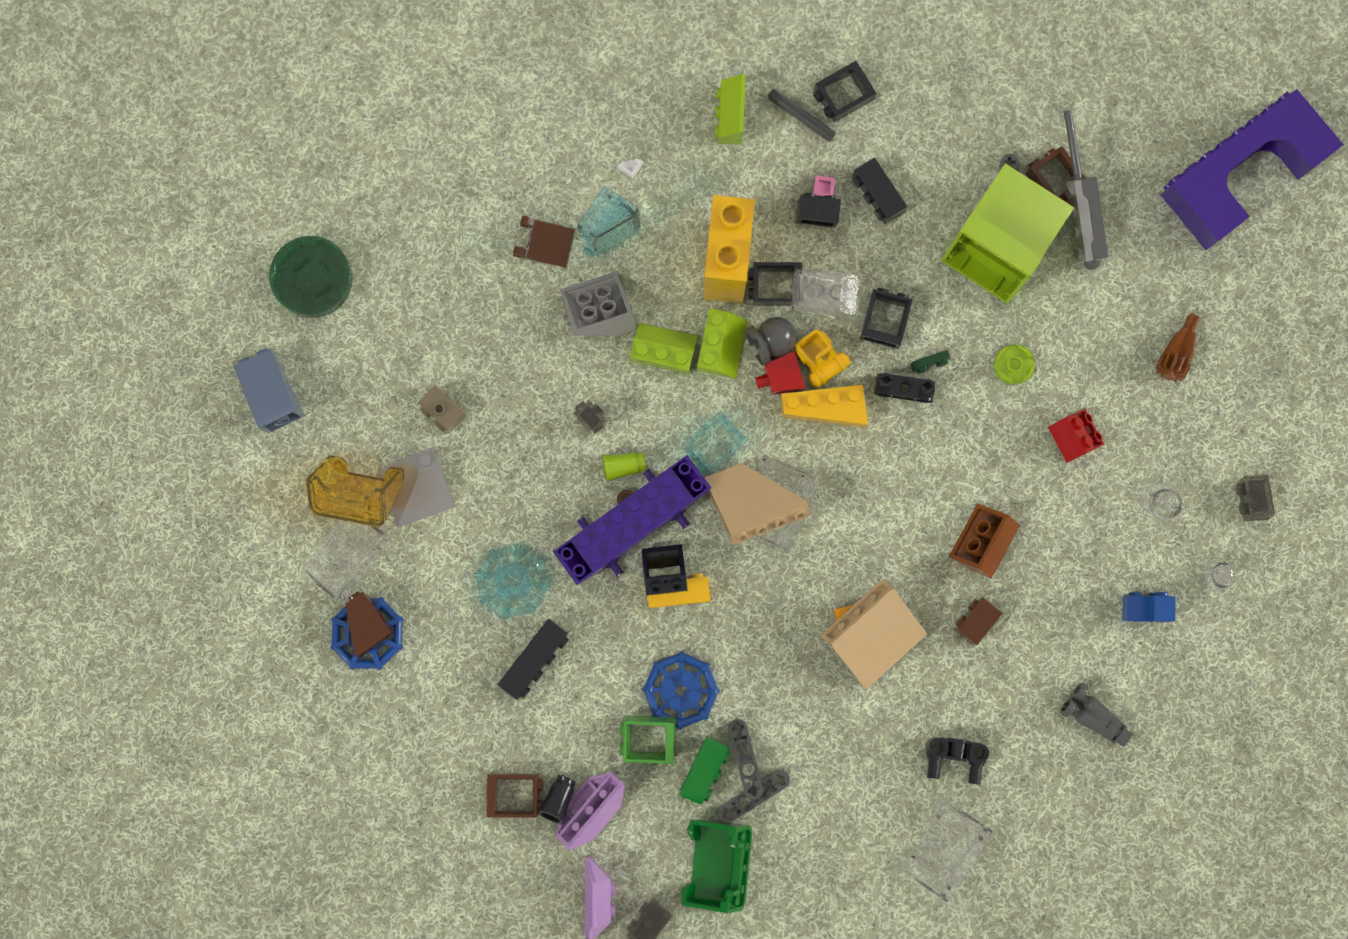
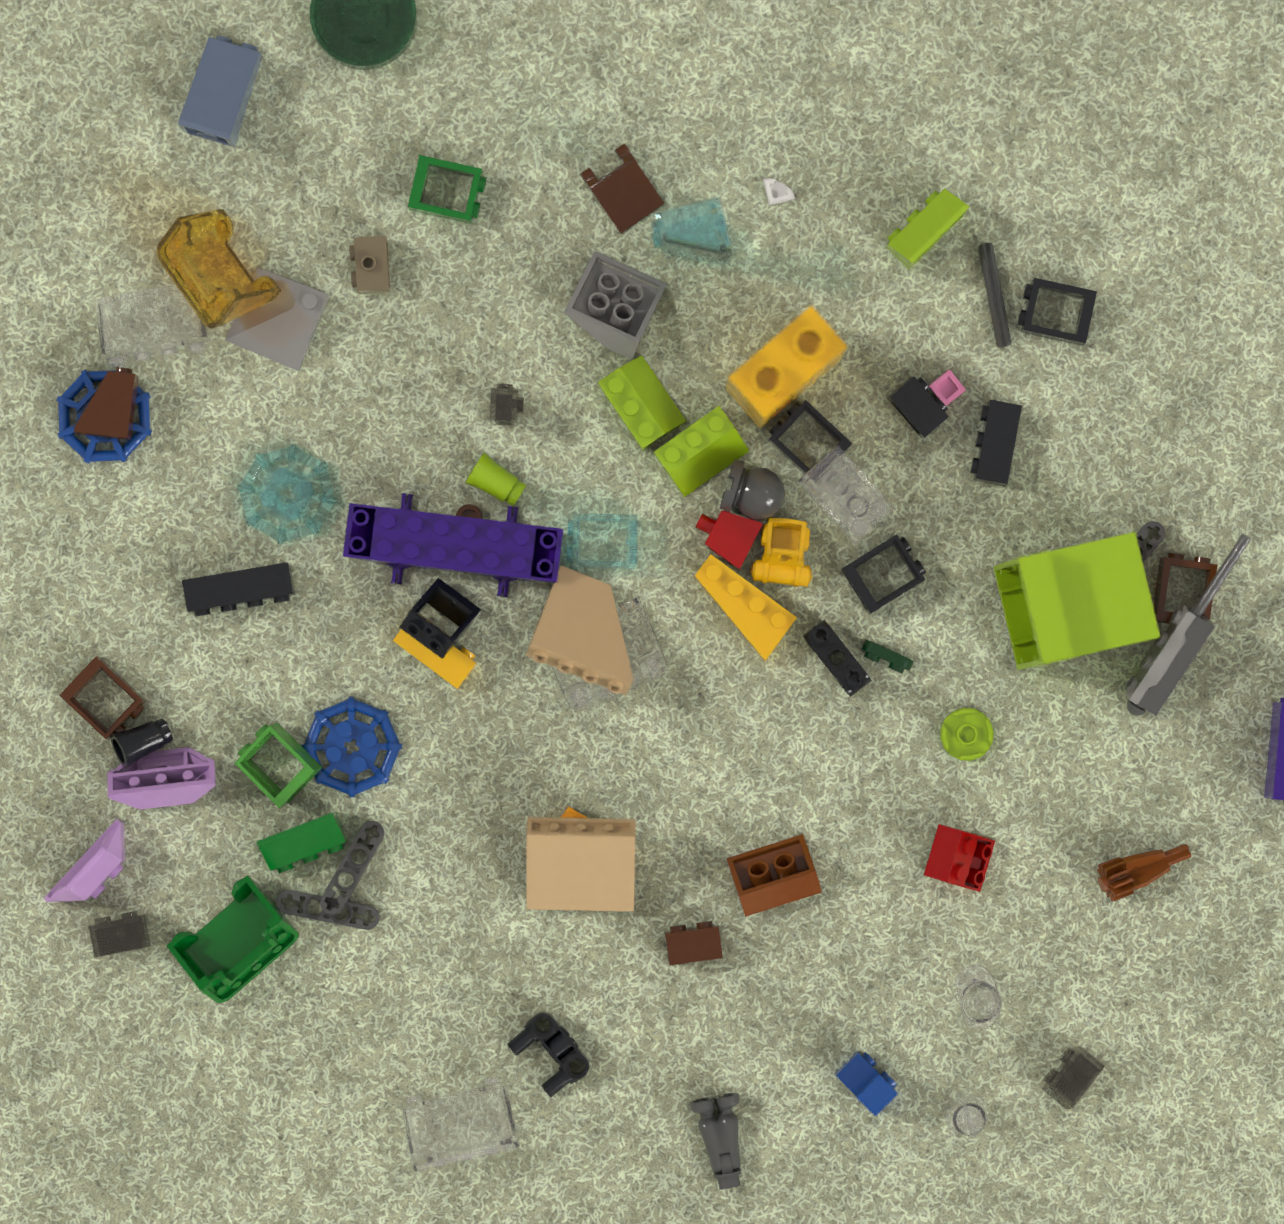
camera: 40 degrees right, 5 degrees up
(454, 345) = (419, 183): none -> green window

